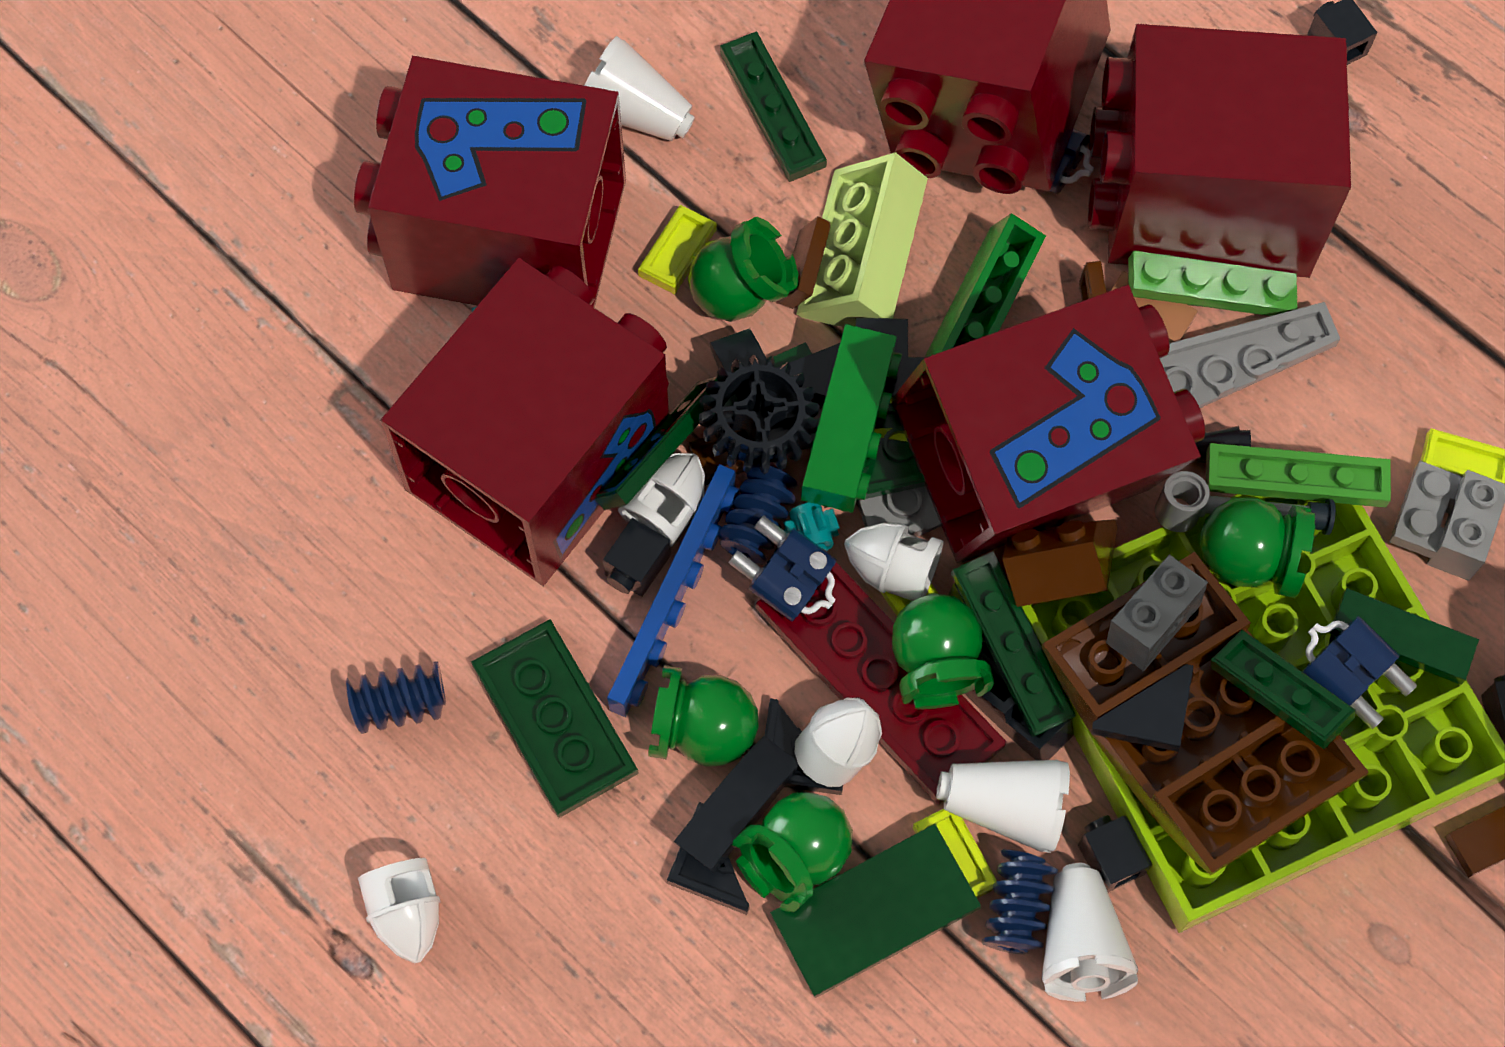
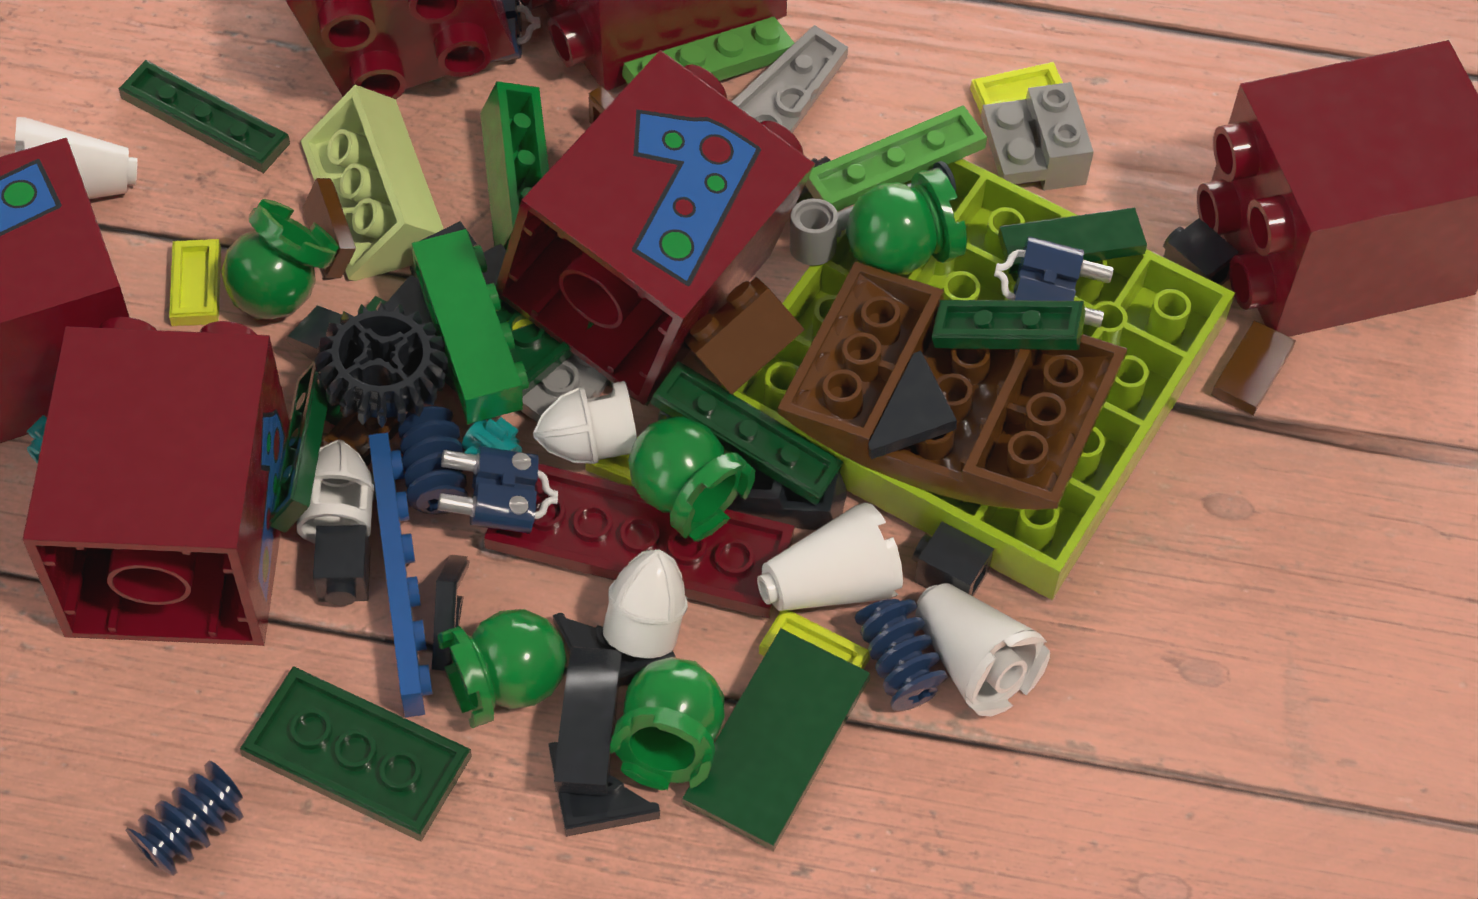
camera: 35 degrees left, 10 degrees down
(696, 638) = (447, 606): none -> black tile
(1156, 612) = (861, 320): dark grey brick -> none

